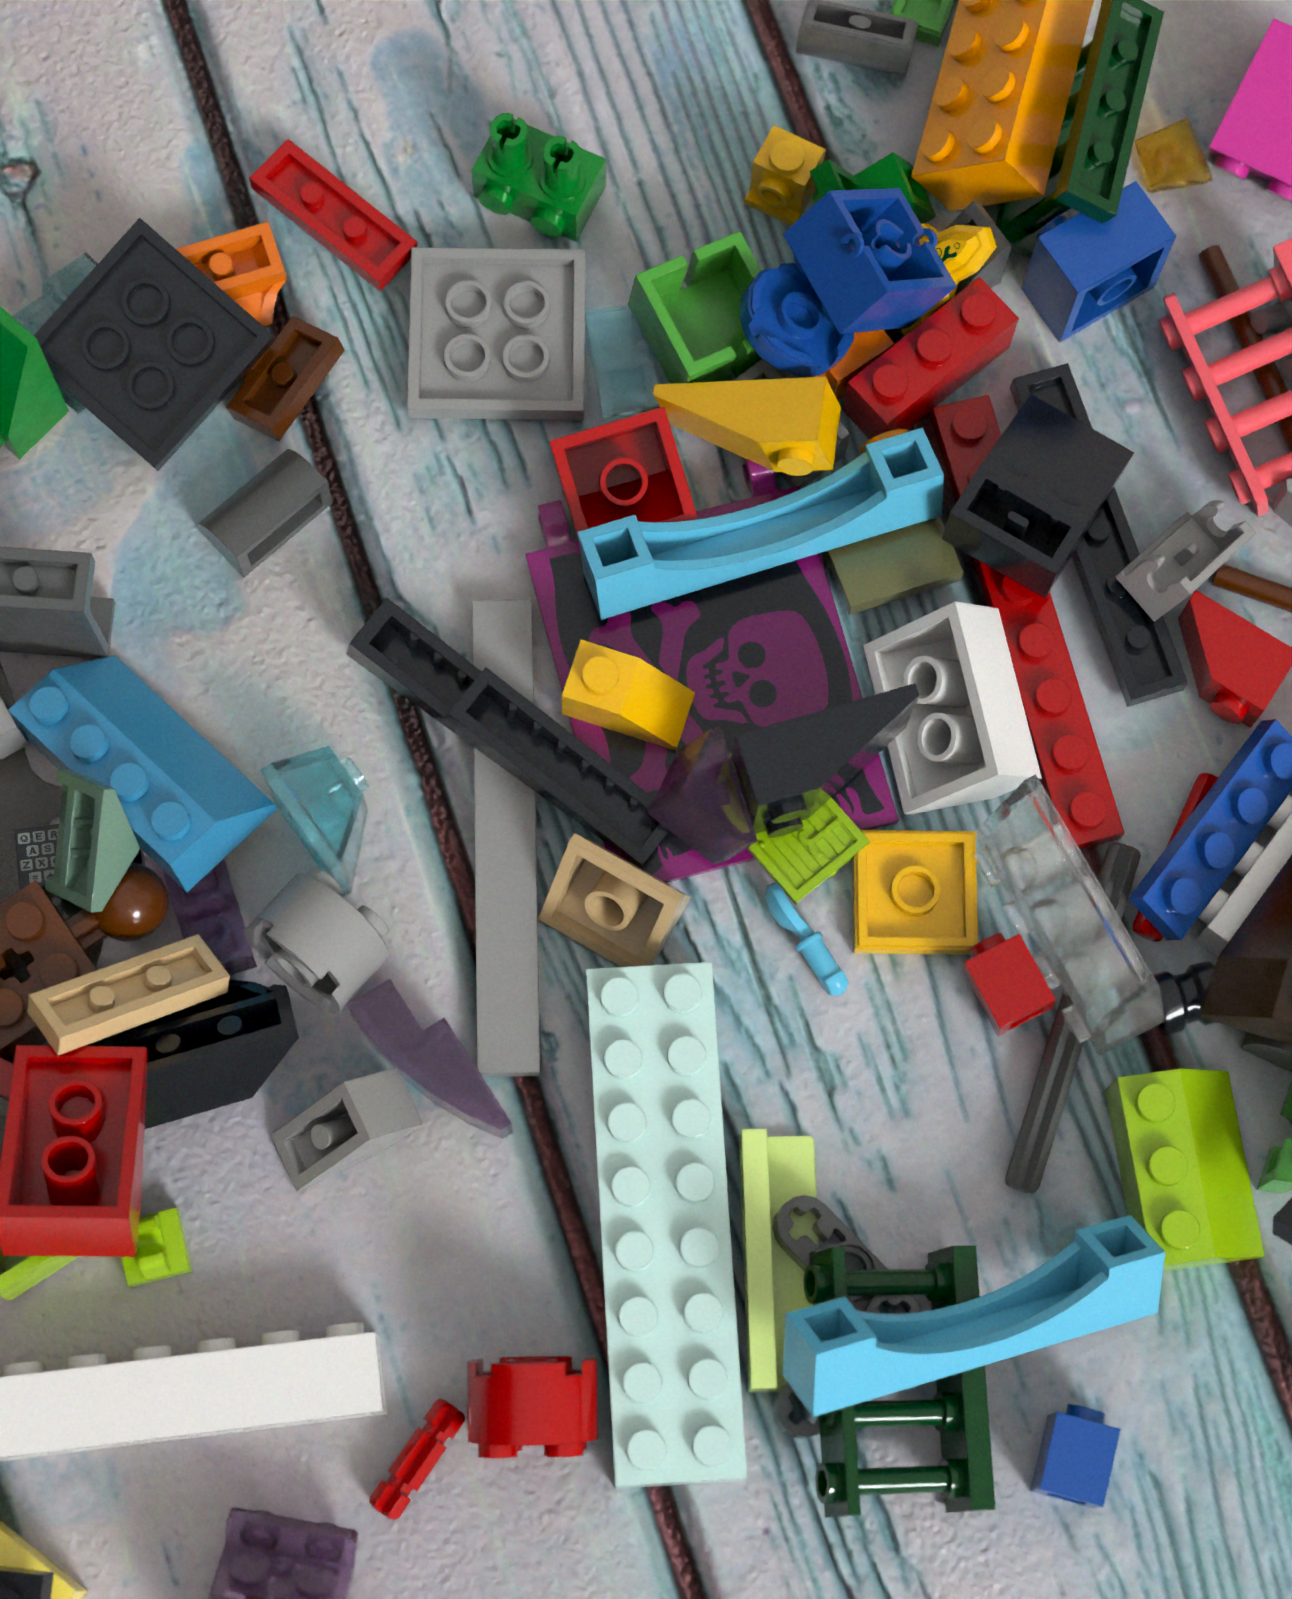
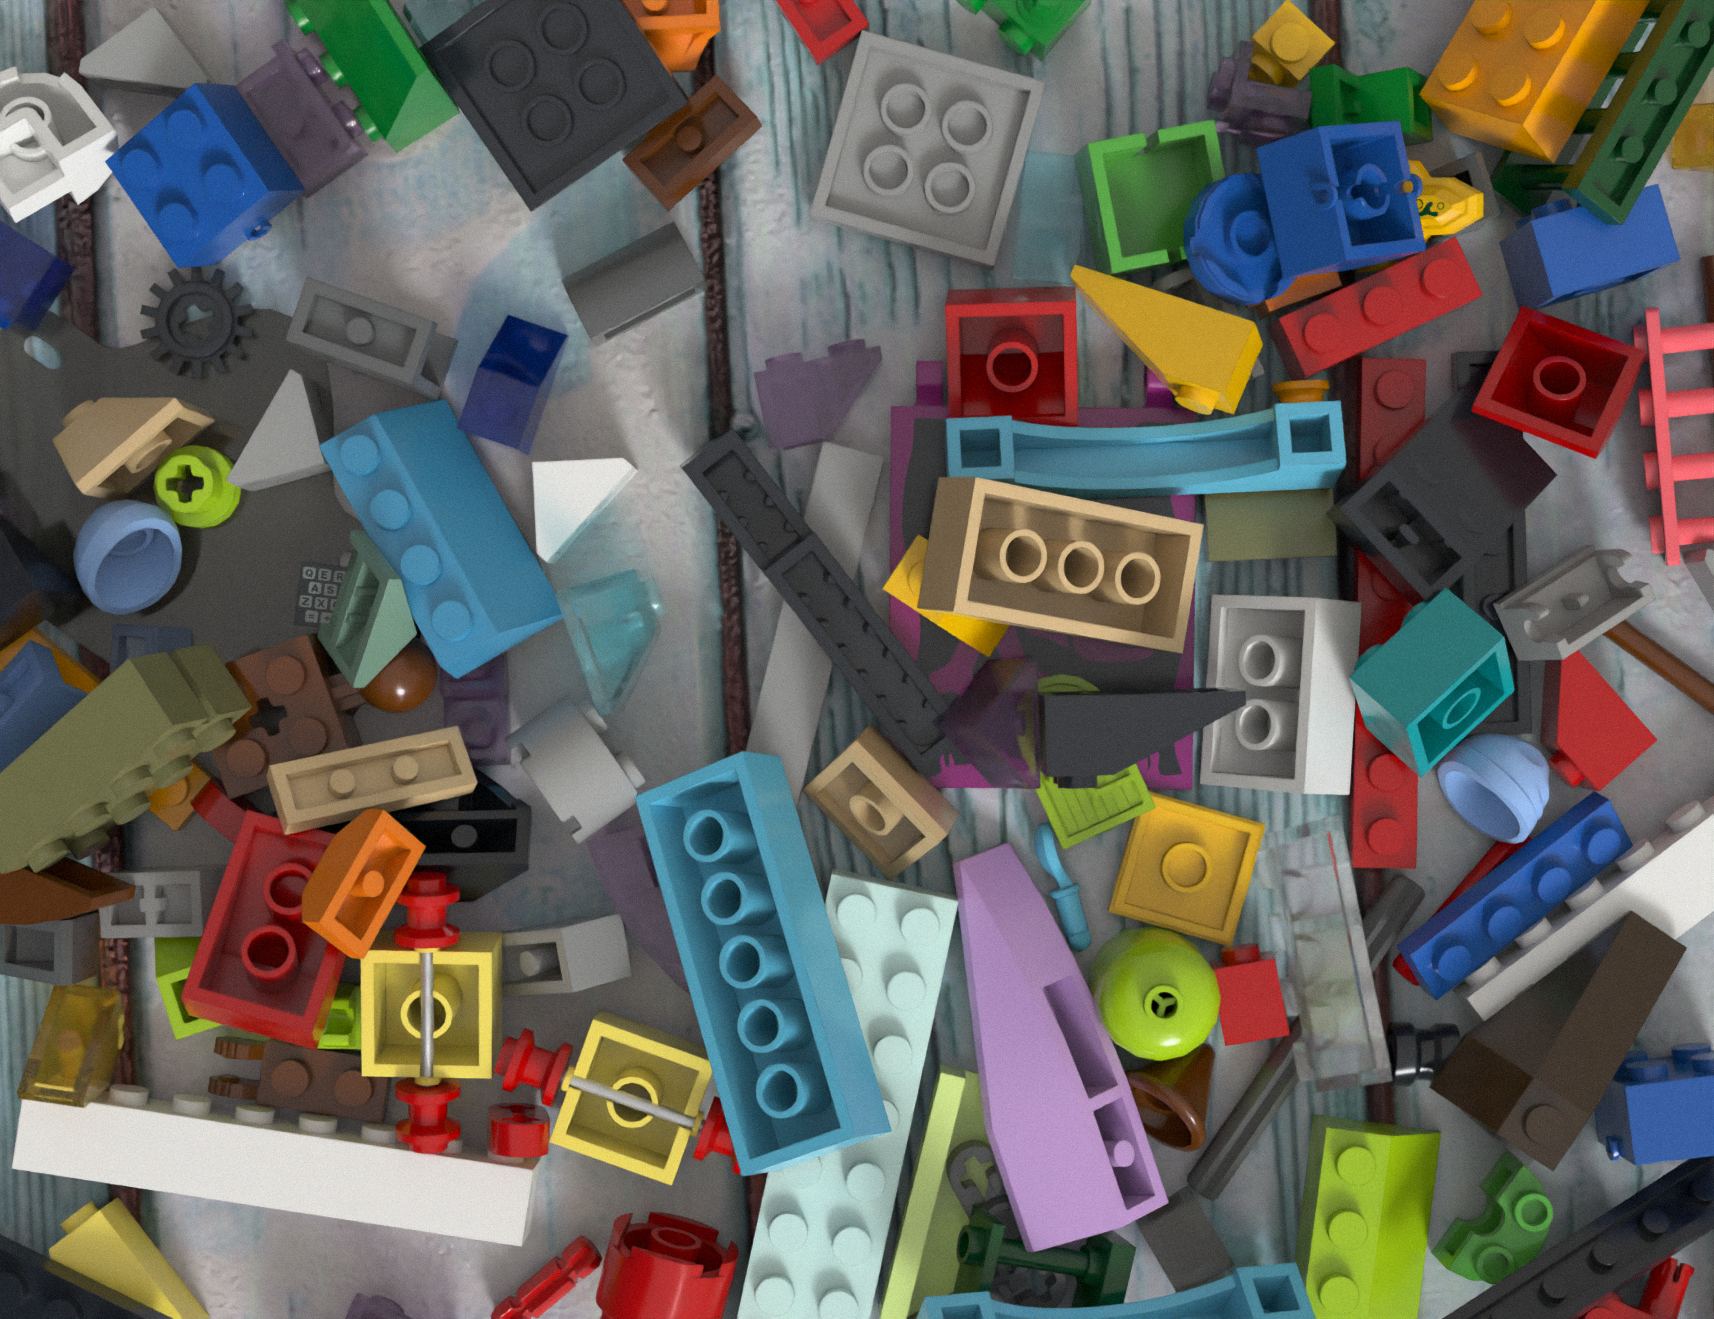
camera: 20 degrees right, 15 degrees up
(133, 1317) = (304, 1079): none -> reddish brown hinge
(142, 1071) = (359, 881): none -> orange slope
(175, 628) = (513, 385): none -> clear blue slope
(236, 1200) = (431, 1010): none -> light yellow brick
(257, 703) = (571, 497): none -> white slope
(350, 1297) = (518, 1130): none -> red beam
(452, 562) = (814, 398): none -> clear purple slope
(454, 1234) = (627, 1097): none -> light yellow brick
(544, 1061) = (761, 963): none -> medium azure brick
(716, 628) = (1059, 564): none -> tan brick
(767, 212) = (1250, 108): none -> clear purple bracket
(841, 1100) = (1047, 1066): none -> lavender wedge
(916, 1031) = (1133, 972): none -> lime cylinder
(962, 1104) = (1175, 1097): none -> reddish brown hat
(1019, 1233) = (1185, 1242): none -> clear smoke brick
(1081, 643) = (1432, 680): none -> teal brick
(1111, 371) = (1559, 382): none -> red slope
(1169, 736) = (1496, 785): none -> light blue hat

